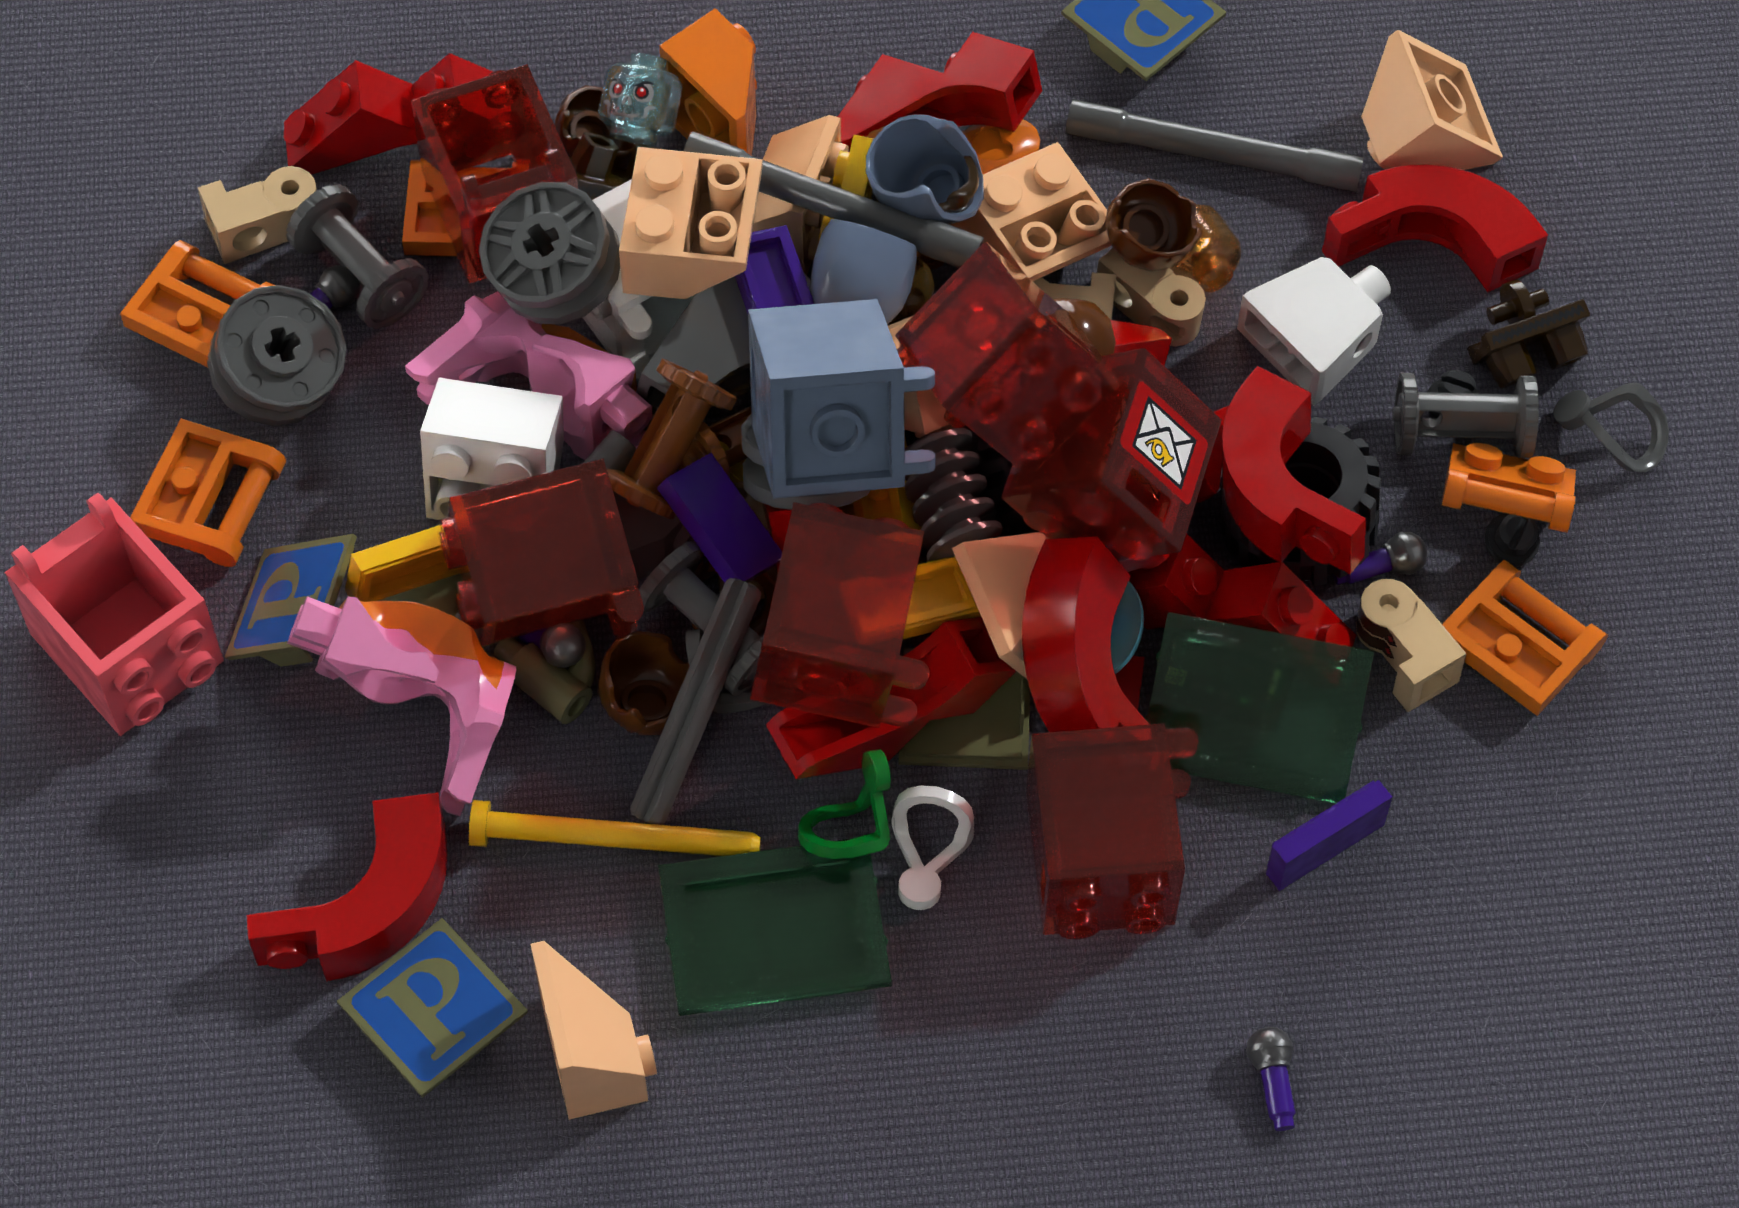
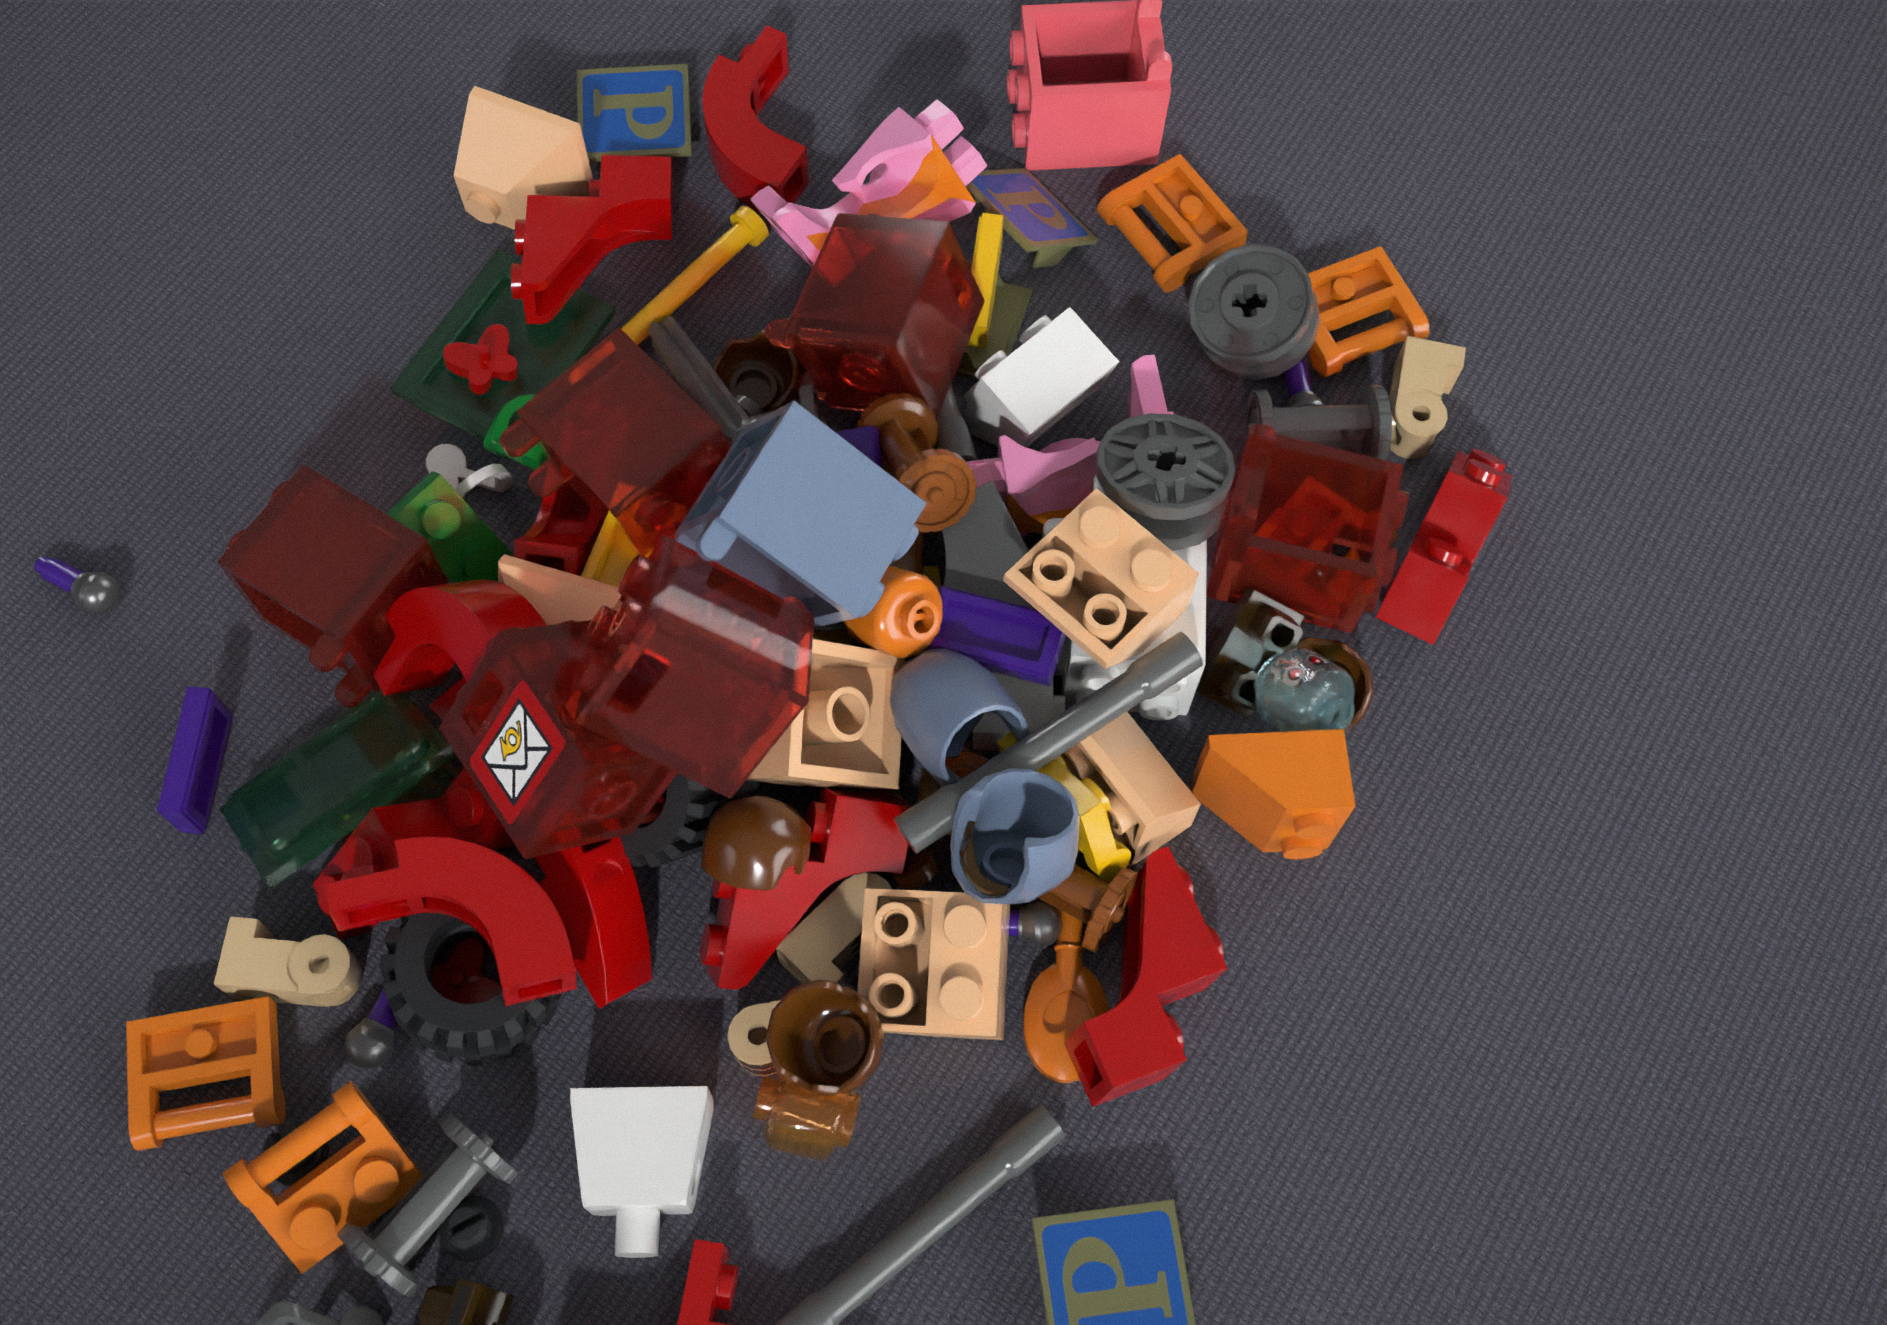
camera: 125 degrees right, 5 degrees up
(635, 930) = (572, 234): none -> red arch
(801, 922) = (483, 360): none -> red piece
(994, 778) = (454, 531): none -> green piece

